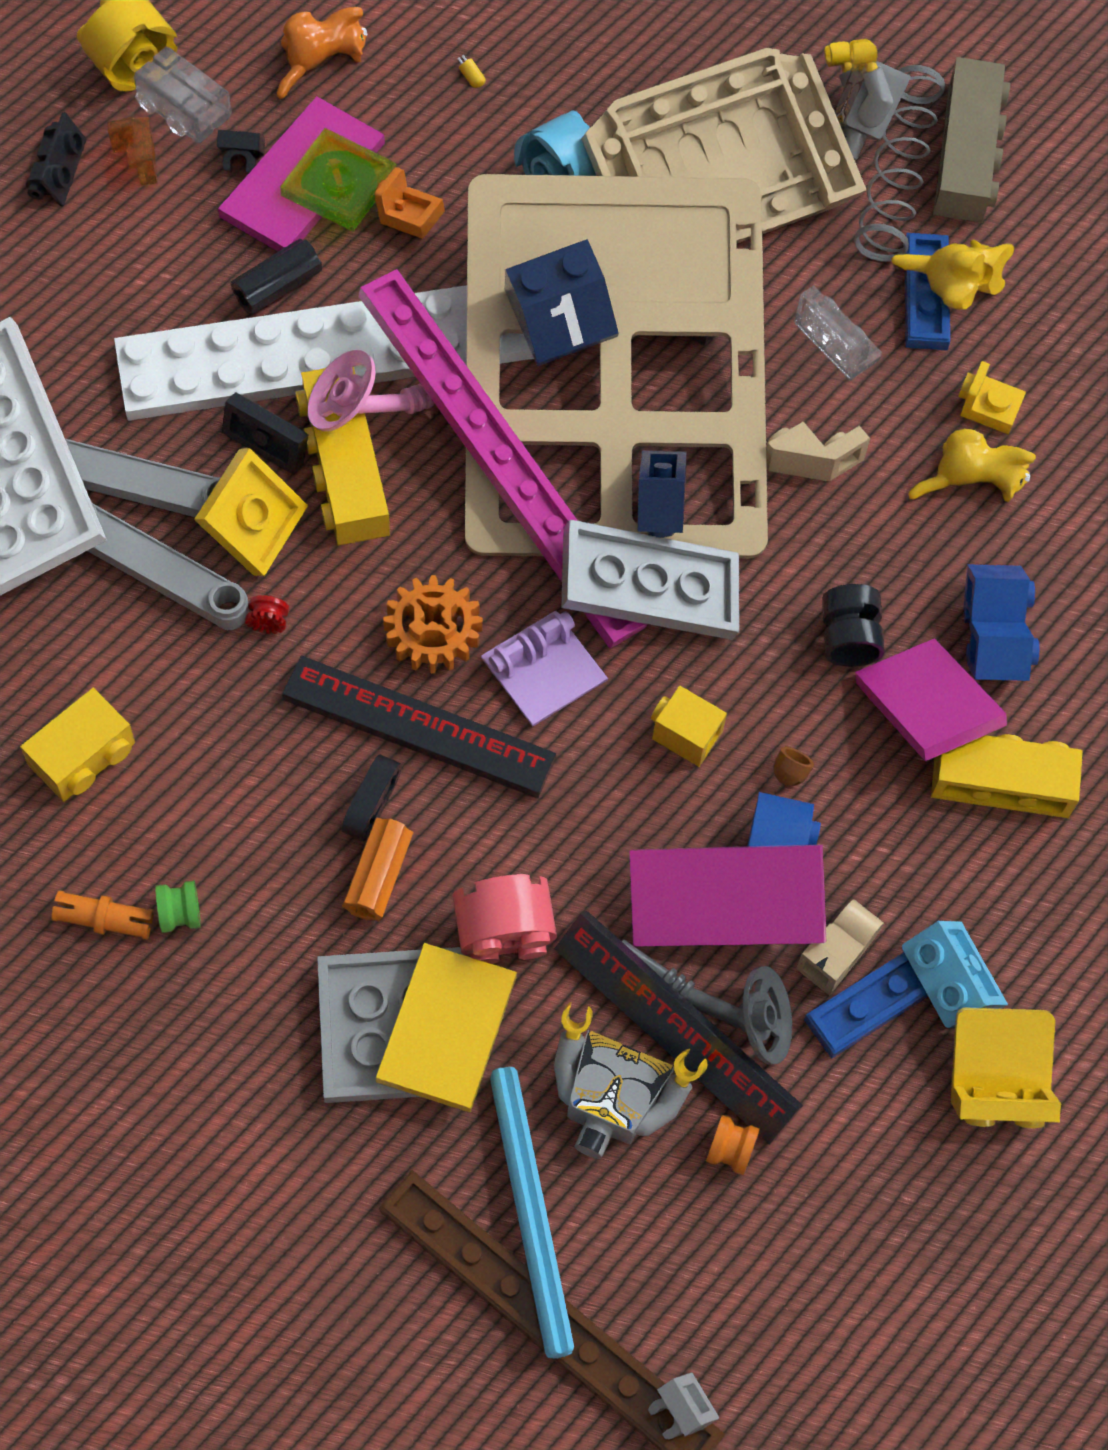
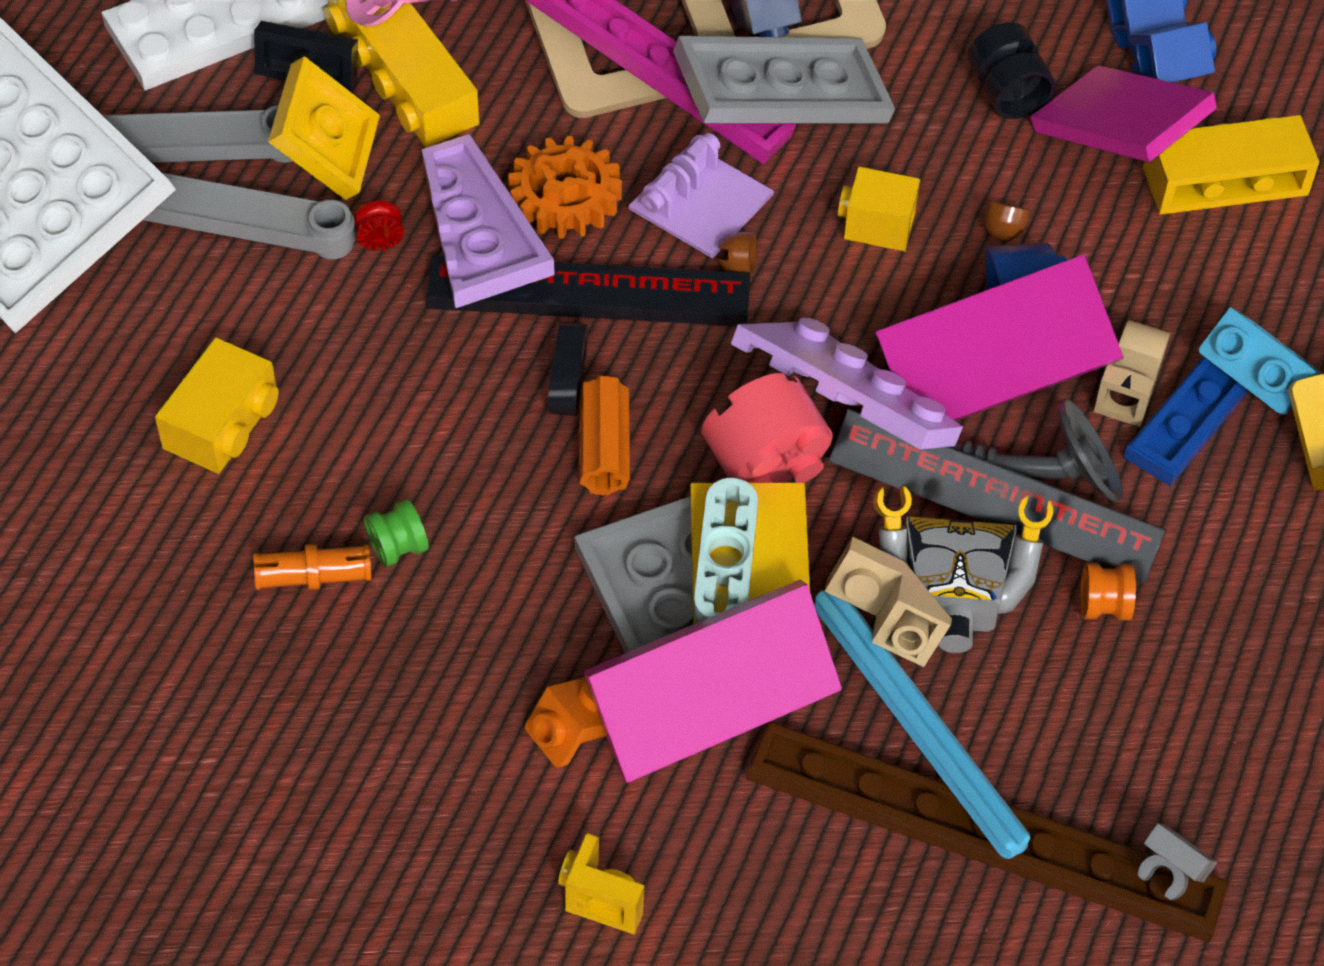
camera: 15 degrees left, 10 degrees down
(226, 1282) = (600, 895): none -> yellow bracket
(261, 1116) = (564, 721): none -> orange bracket
(346, 646) = (479, 225): none -> lavender wing
(374, 1127) = (713, 680): none -> tile
(420, 1059) = (715, 535): none -> light aqua beam
(554, 731) = (741, 252): none -> dark orange hinge
(554, 1121) = (905, 611): none -> tan slope
(591, 885) = (851, 379): none -> lavender wing

